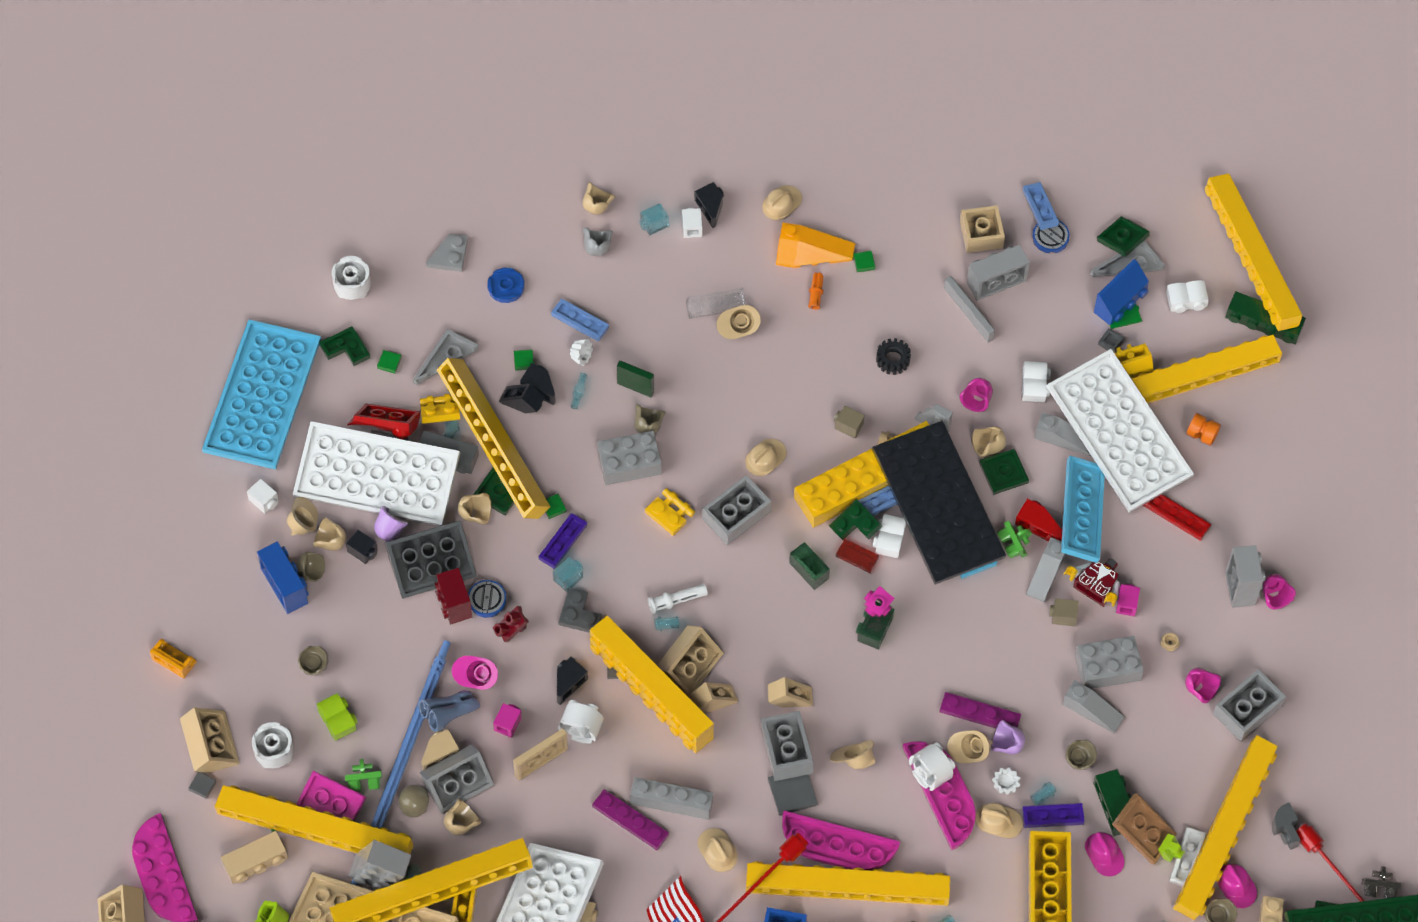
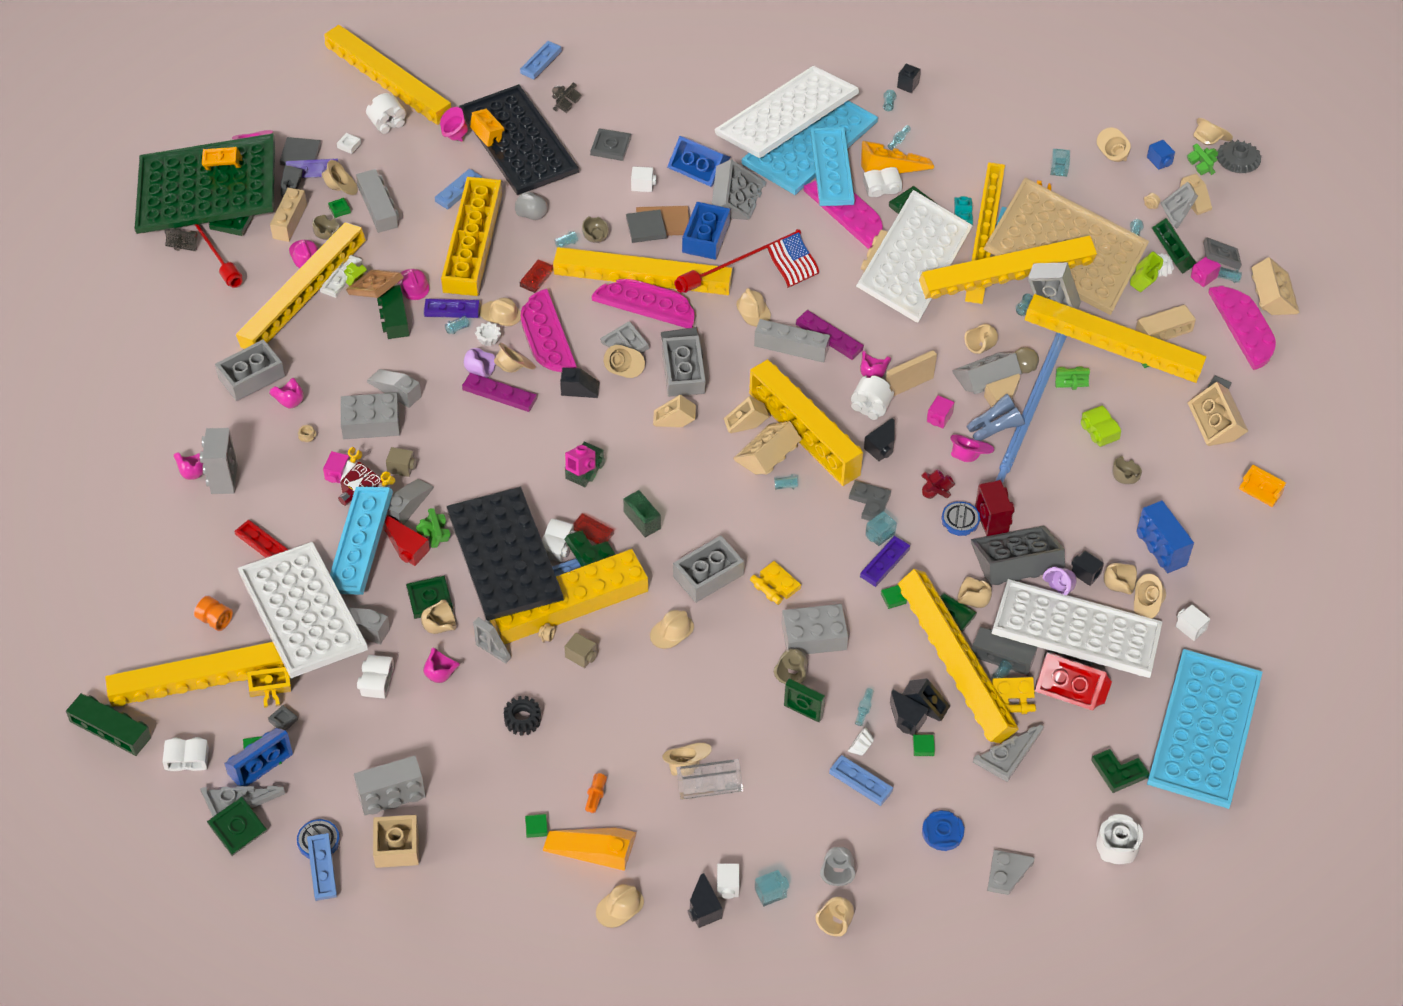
camera: 175 degrees left, 10 degrees down
(268, 755) = (1158, 403): white brick -> none
(311, 566) = (1138, 552): dark tan hair -> none
(331, 797) = (1100, 362): dark pink tile -> none
(389, 361) = (1070, 754): green tile -> none
(581, 765) = (872, 366): none -> dark pink hair
(668, 600) = (783, 500): white pin -> none
(853, 788) = (626, 336): none -> light grey wing
(896, 723) = (578, 383): none -> black slope
(932, 766) = (554, 331): white brick -> none
(967, 869) = (536, 276): none -> clear red plate
(969, 309) = (429, 758): light grey tile -> none
(1081, 754) = (415, 347): dark tan hair -> none
(1253, 252) = (97, 788): yellow brick -> none
(1284, 823) = (248, 286): dark grey brick -> none

